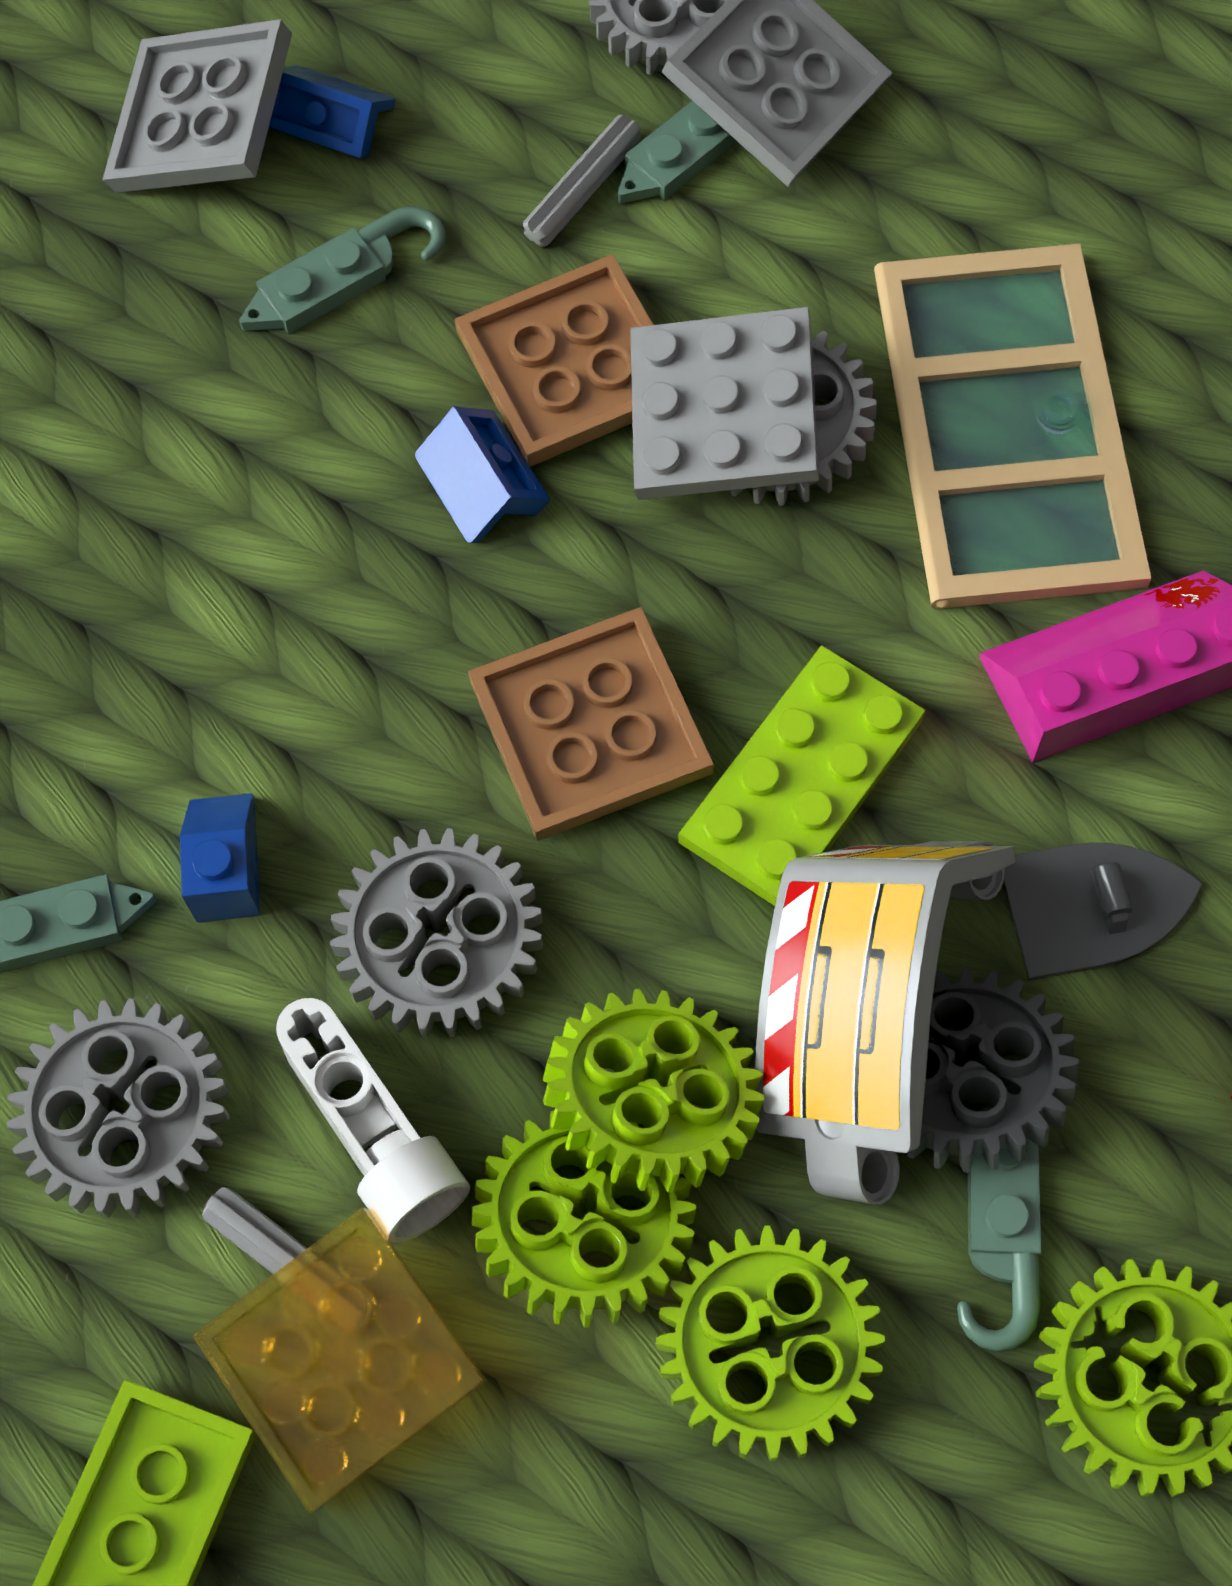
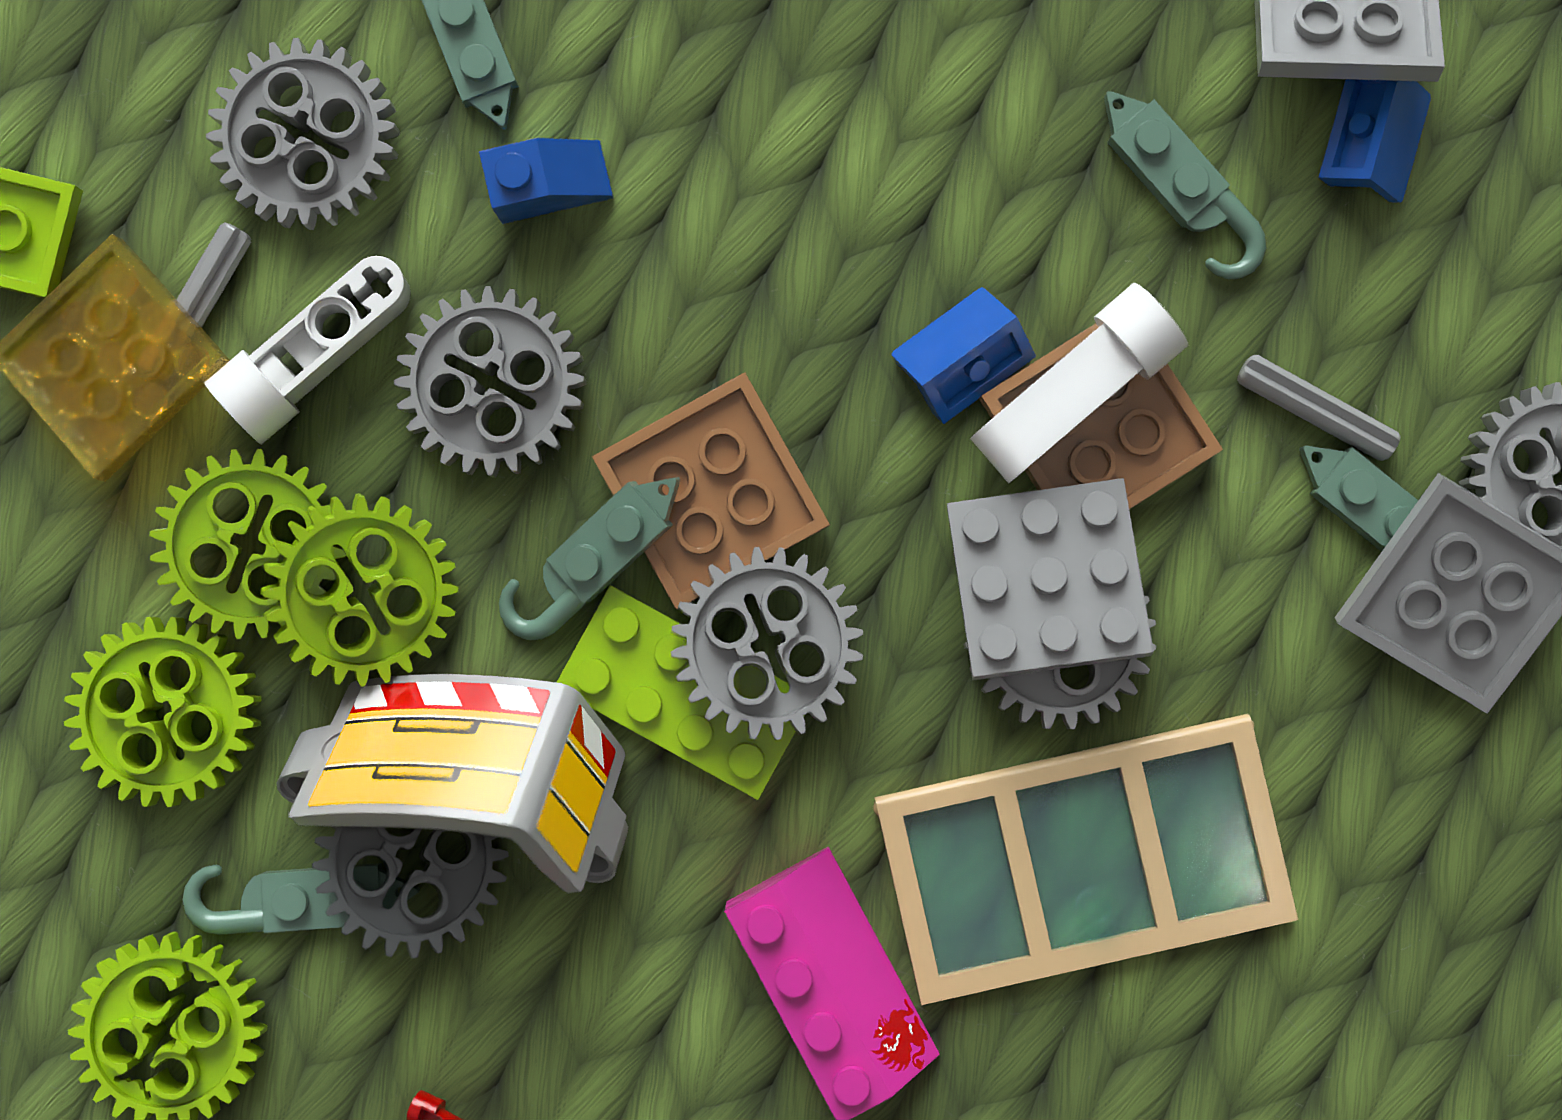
camera: 80 degrees right, 20 degrees up
(500, 310) = (1130, 339): none -> white beam
(646, 840) = (595, 555): none -> sand green plate
(777, 715) = (817, 624): none -> light grey gear
(1093, 905) = (591, 963): dark grey shield -> none

